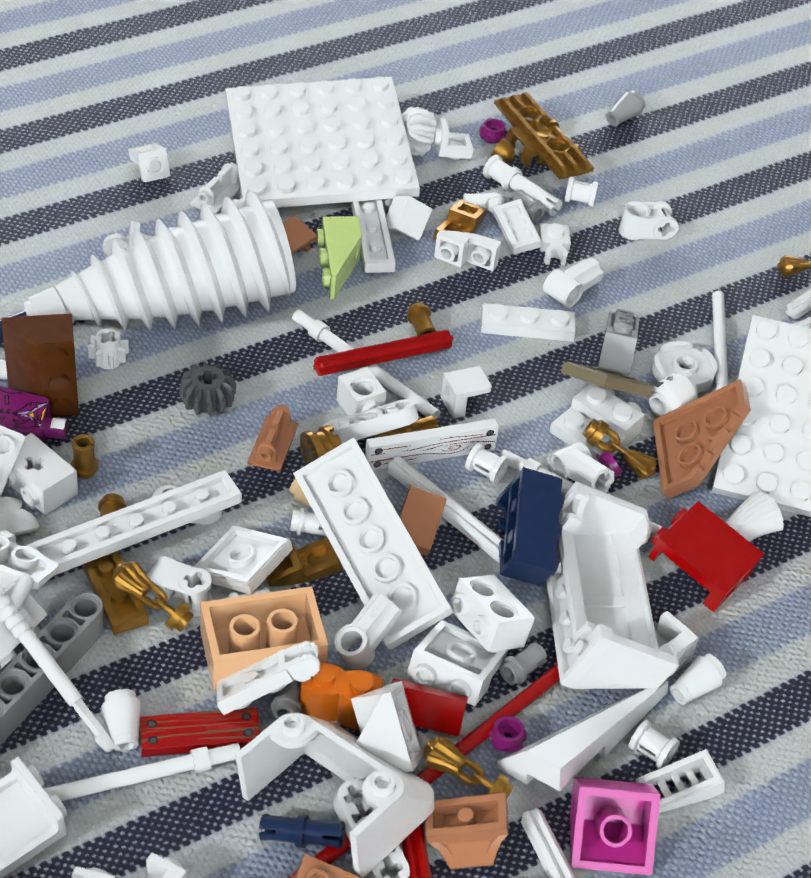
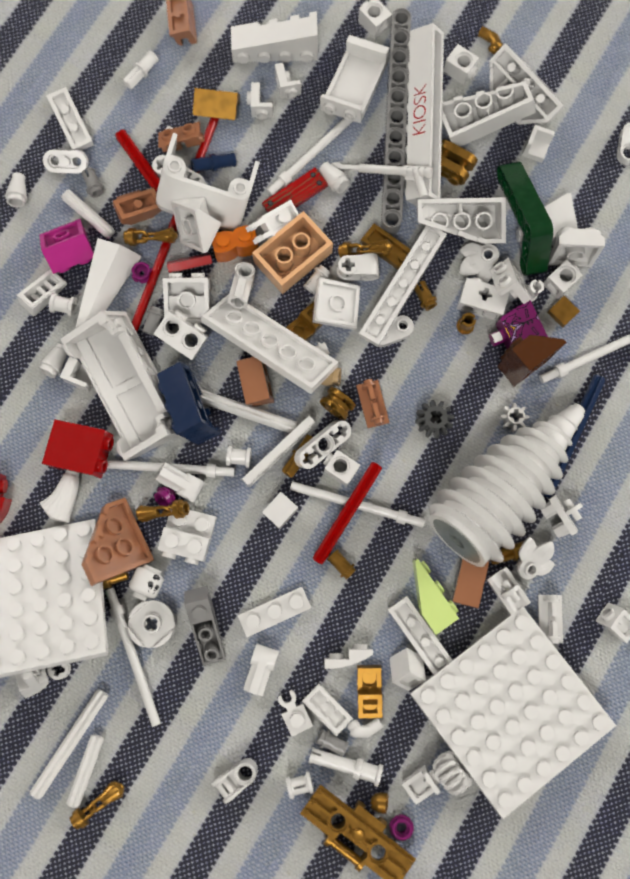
camera: 155 degrees right, 35 degrees up
(607, 379) = (192, 562): dark tan tile -> none

